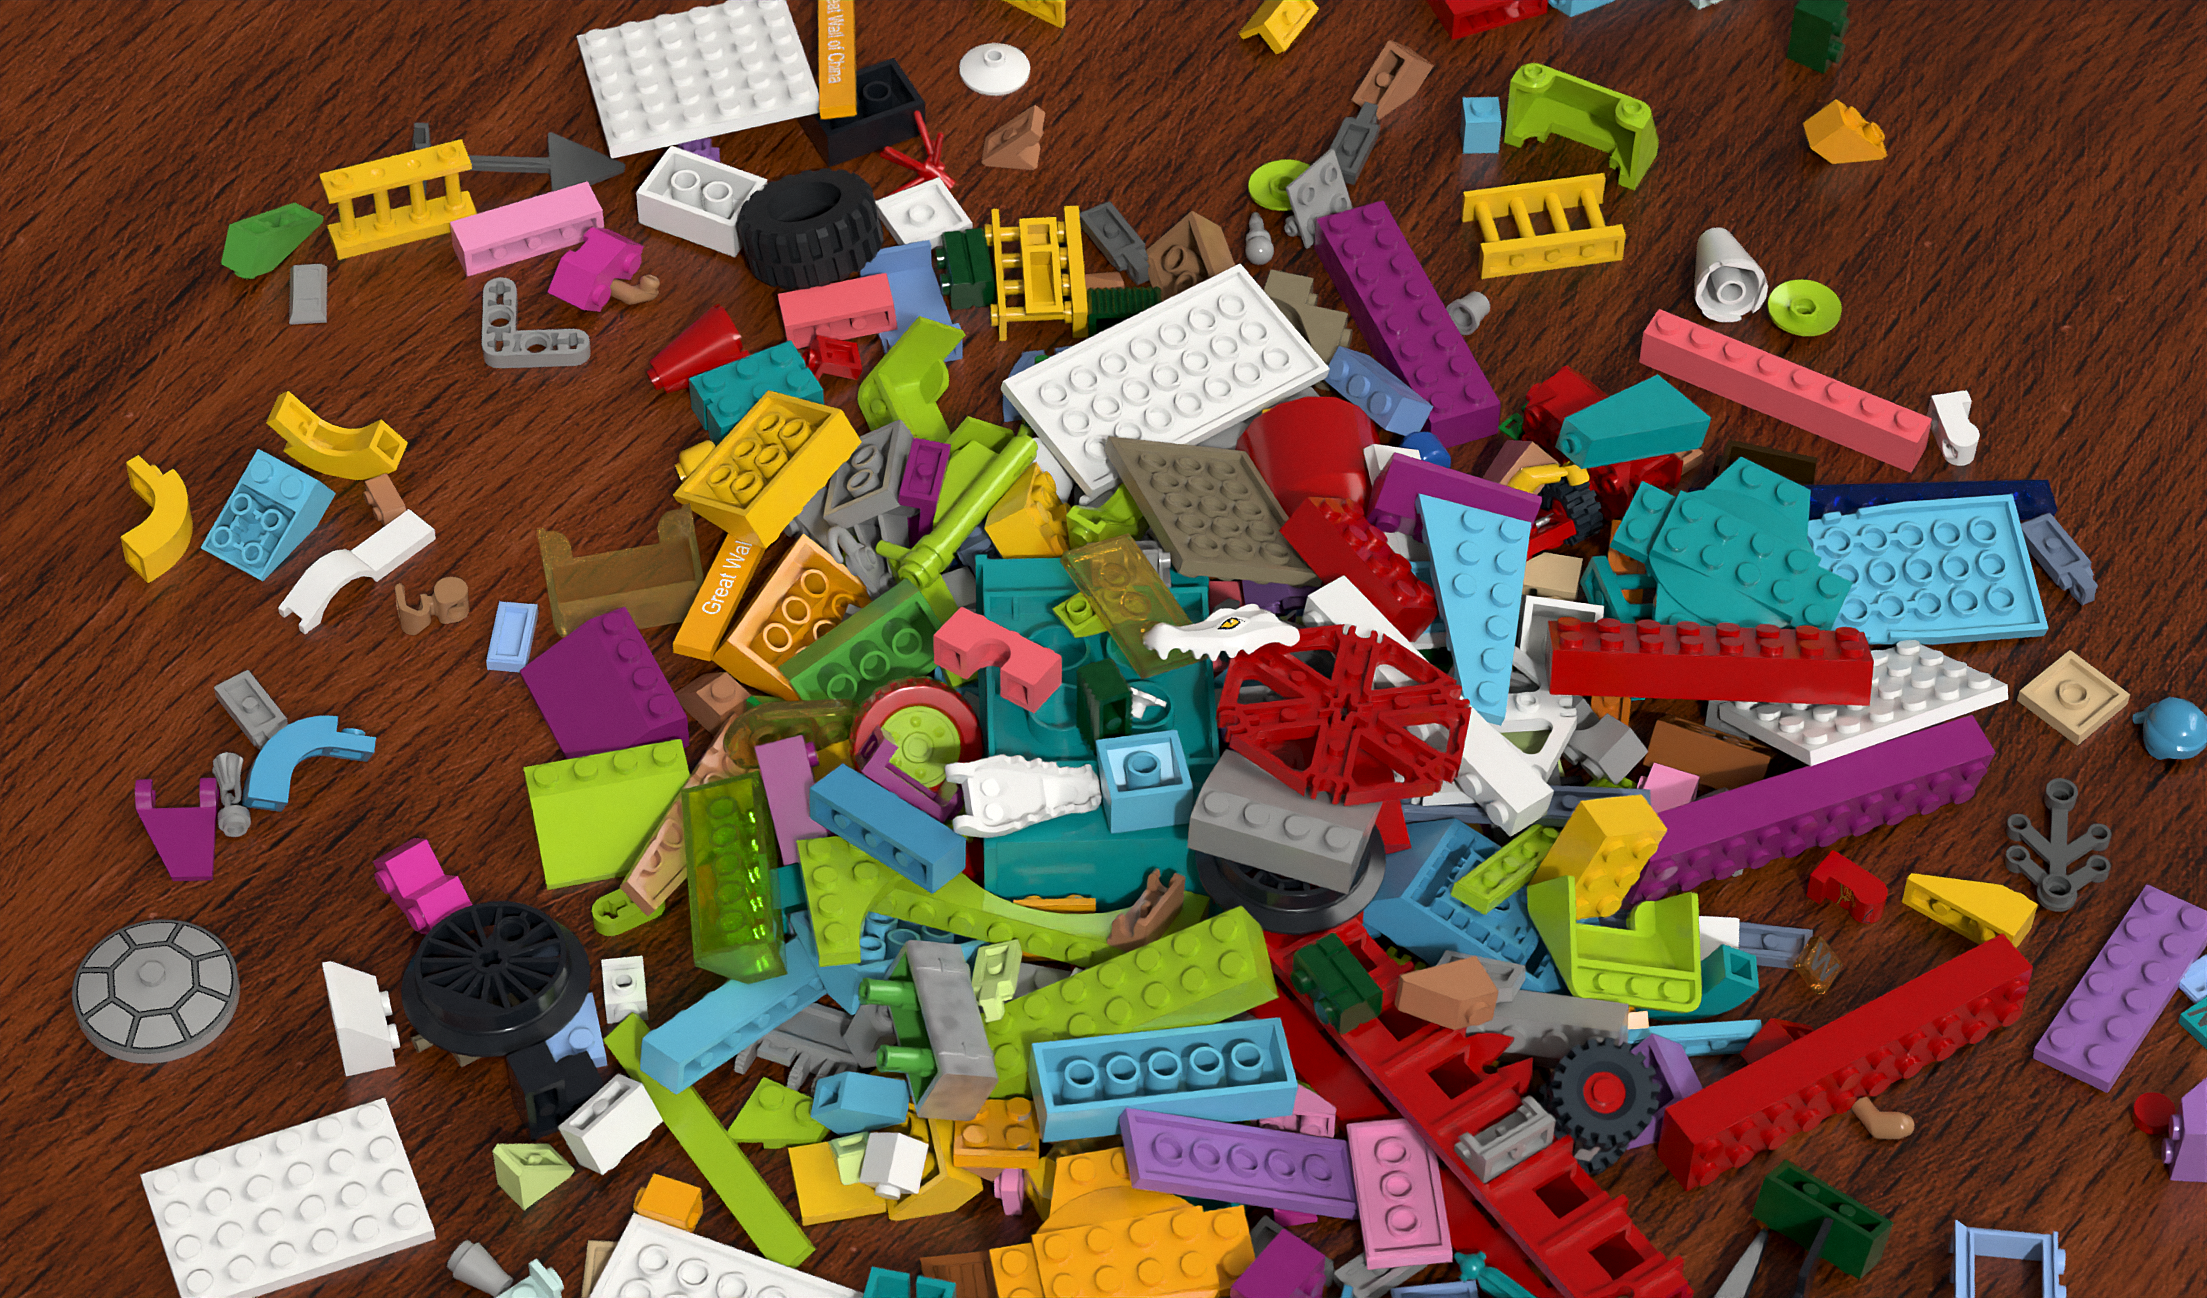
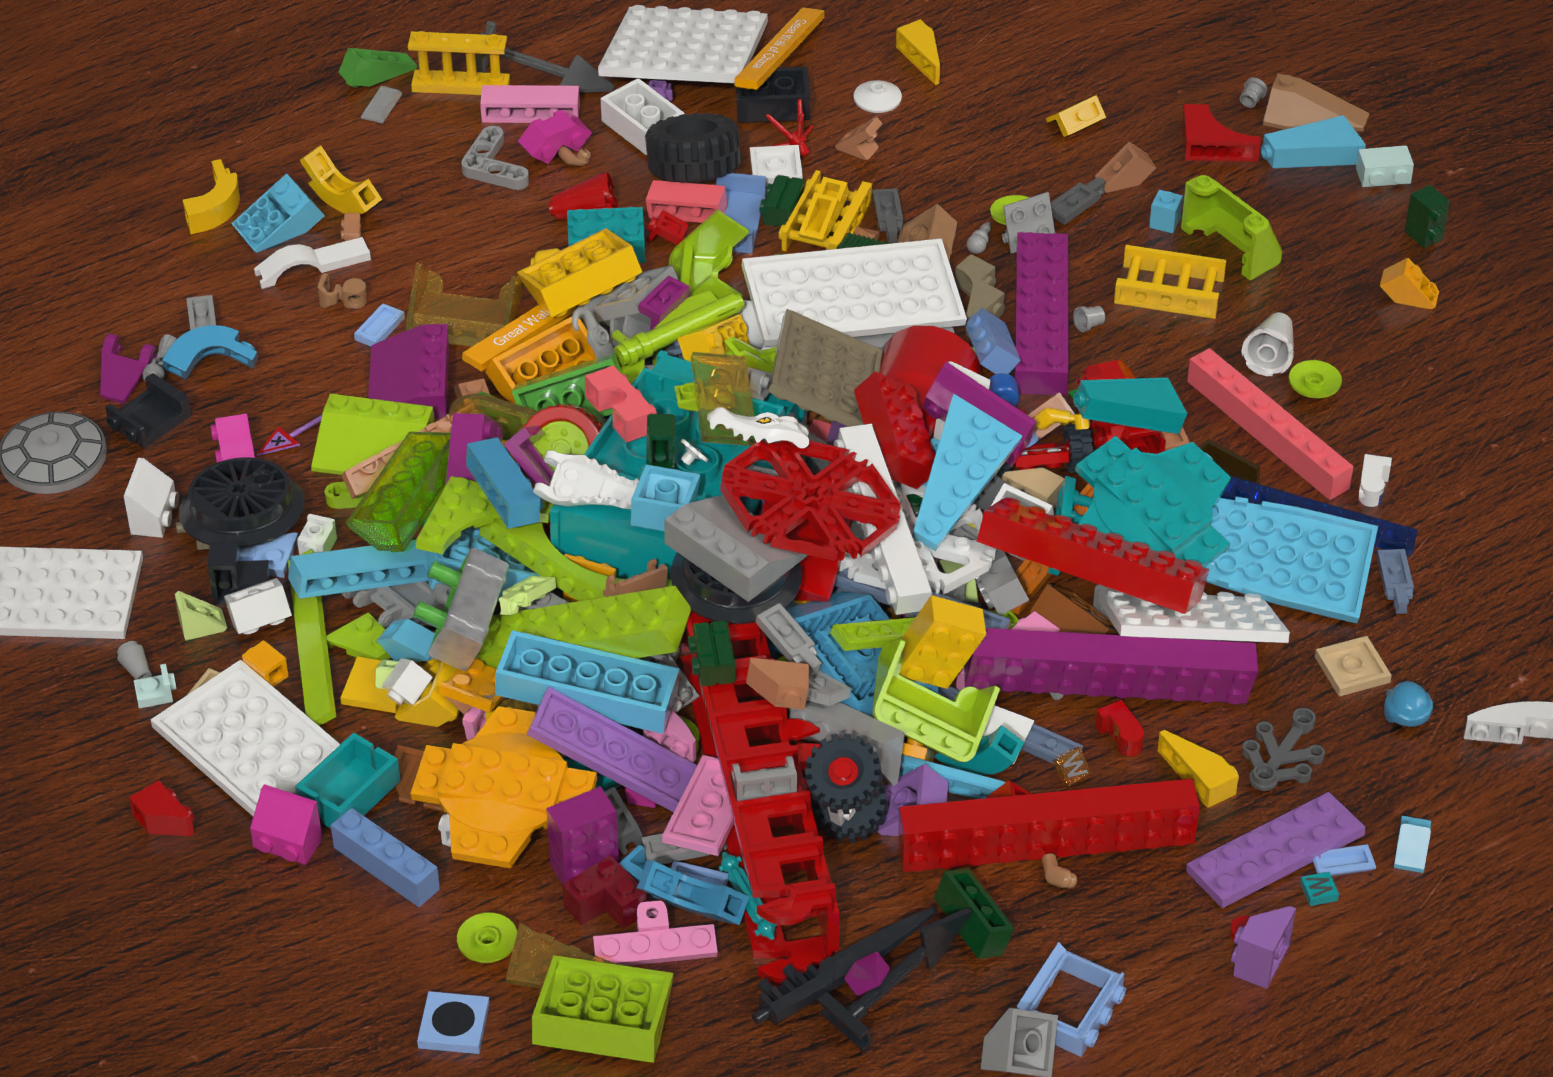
camera: 25 degrees right, 5 degrees down
(265, 881) = (150, 413): none -> black panel
(478, 860) = (282, 440): none -> piece
(1414, 924) = (789, 637): none -> light grey hinge

